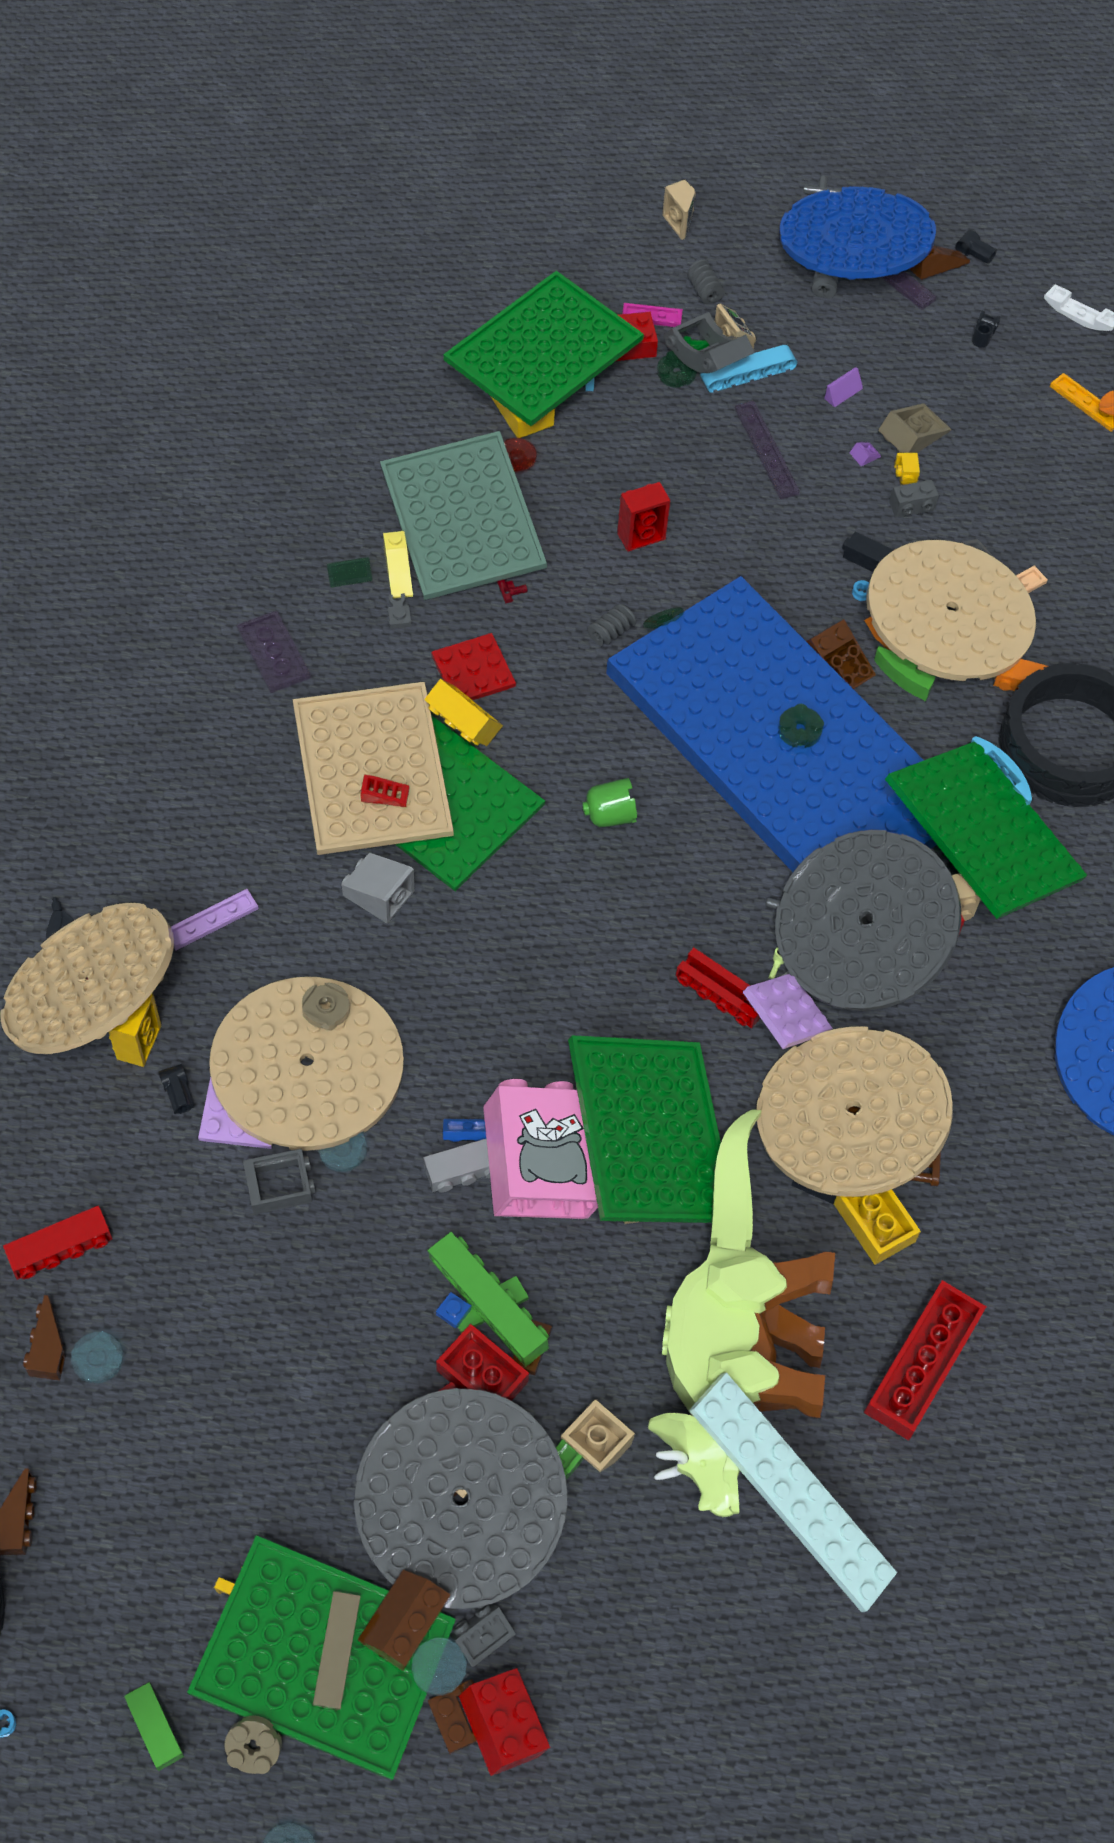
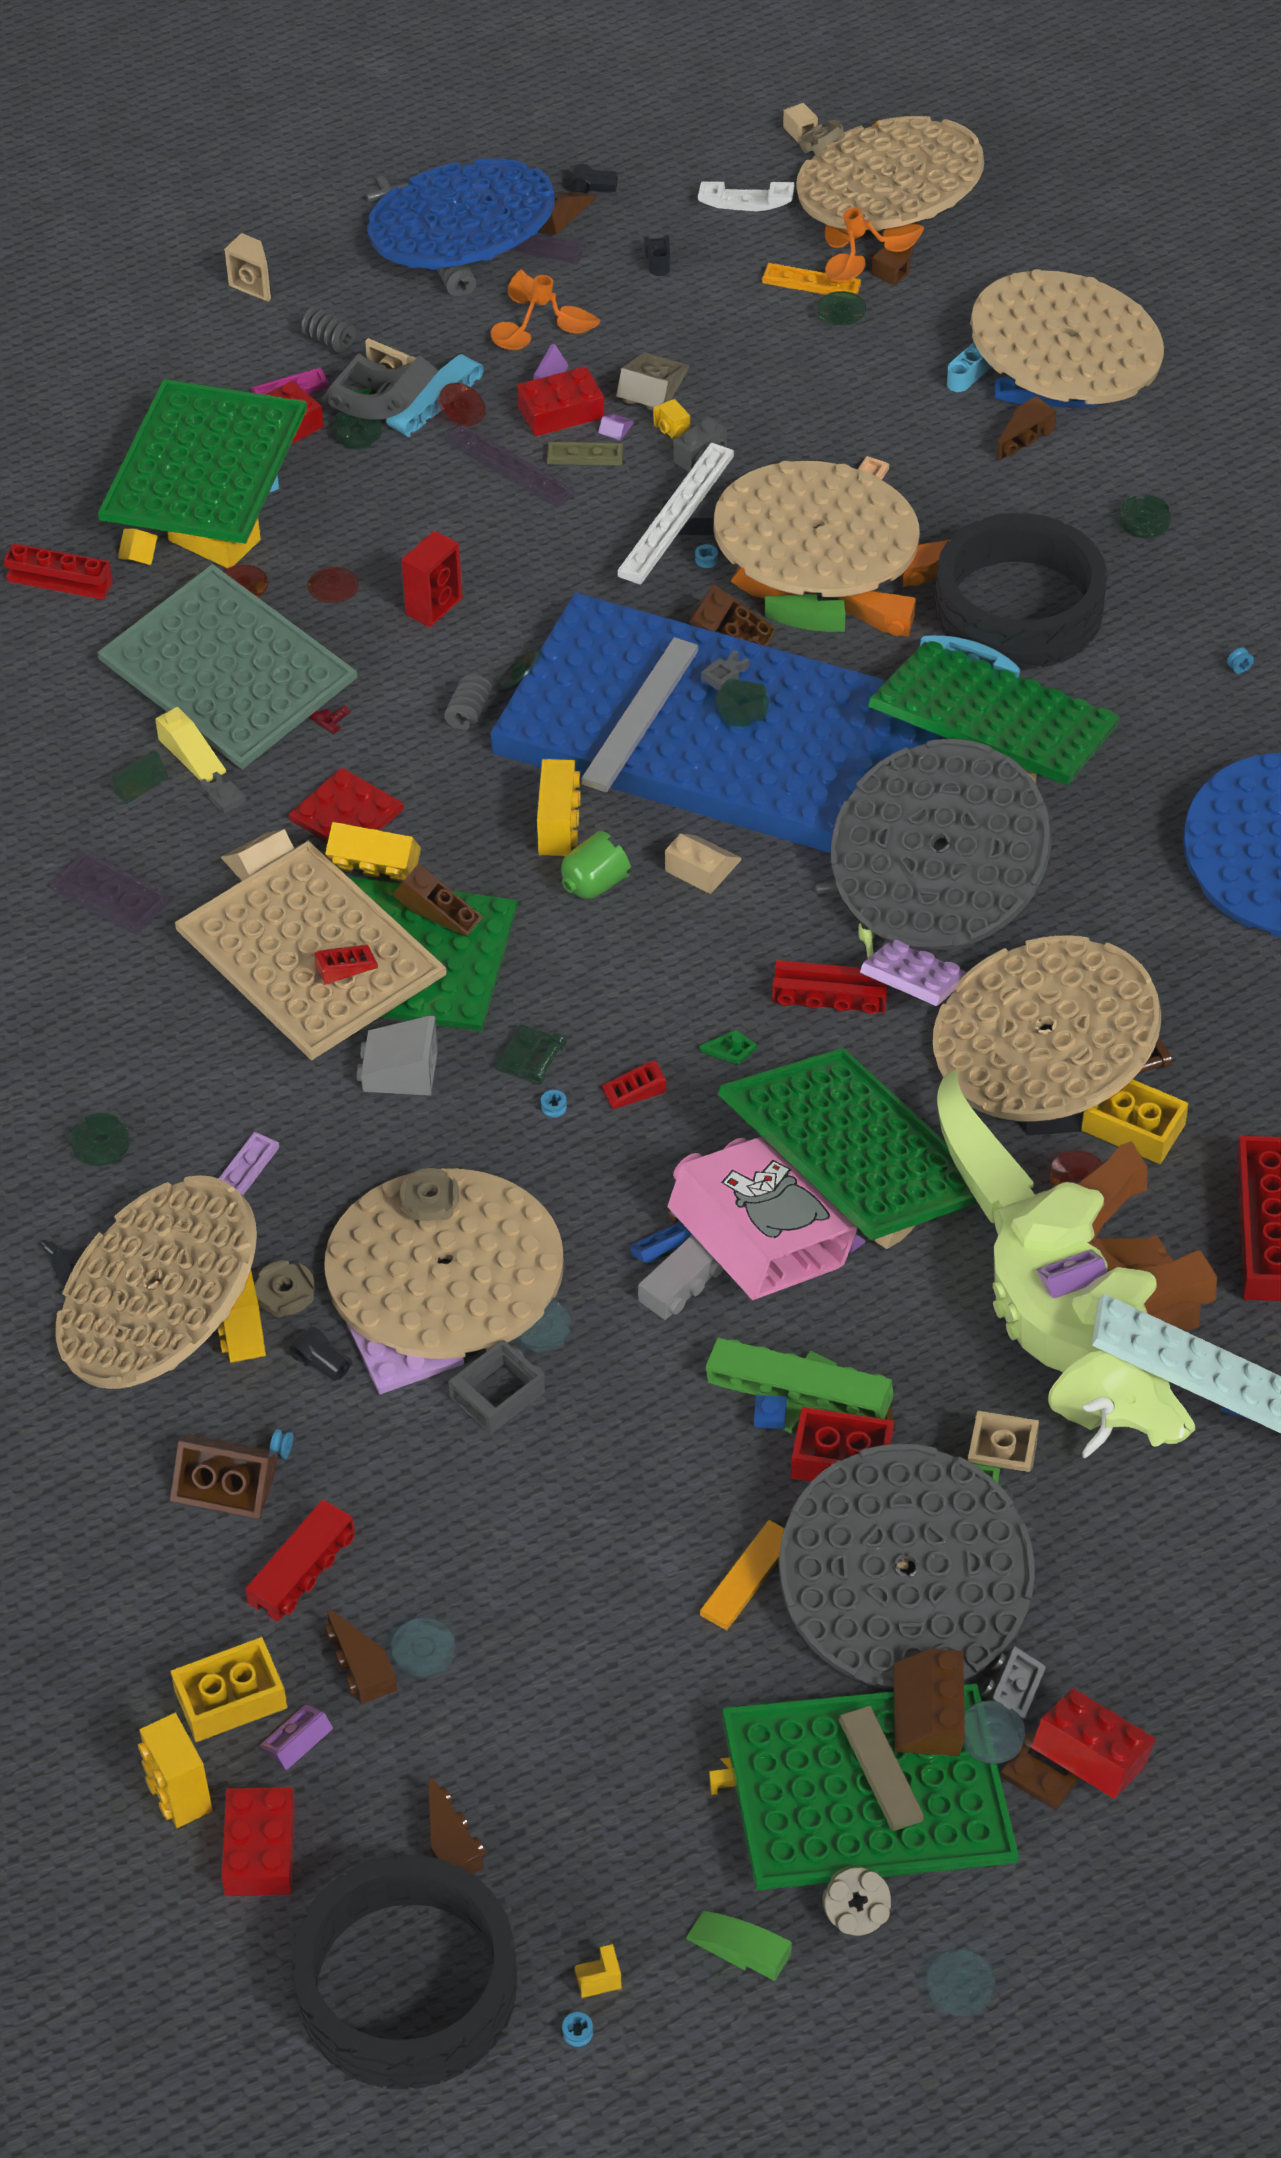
camera: 25 degrees left, 10 degrees down
(44, 1689) = (599, 1975): none -> yellow panel
(51, 1145) = (223, 1475): none -> reddish brown slope
(105, 1143) = (282, 1443): none -> dark azure bush
(141, 851) = (100, 1153): none -> clear green plate
(188, 1035) = (290, 1301): none -> dark tan plate
(349, 1432) = (744, 1577): none -> light orange tile
(389, 672) = (258, 853): none -> tan slope
(397, 385) = (58, 571): none -> red brick
(464, 391) = (137, 546): none -> yellow panel
(470, 980) = (553, 1111): none -> dark azure bush
(472, 922) = (524, 1048): none -> clear green plate
(482, 776) = (436, 902): none -> reddish brown slope
(529, 1000) = (647, 1090): none -> red slope
(581, 490) = (333, 584): none -> clear red dish
(616, 743) = (557, 807): none -> yellow brick
(620, 998) = (730, 1047): none -> green piece
(695, 835) = (699, 862): none -> tan slope
(720, 699) = (639, 715): none -> light grey tile
(725, 1334) = (1072, 1273): none -> medium lavender slope
(767, 380) = (462, 404): none -> clear red dish
(804, 695) = (722, 670): none -> dark grey plate
(804, 1230) = (1073, 1166): none -> clear red dish
(828, 465) = (585, 453): none -> olive tile
(834, 415) = (560, 401): none -> red brick
(856, 547) = (675, 513): none -> white tile
(873, 318) = (539, 291): none -> orange plant
(963, 701) = (883, 611): none -> orange slope
(1093, 435) = (841, 308): none -> clear green dish

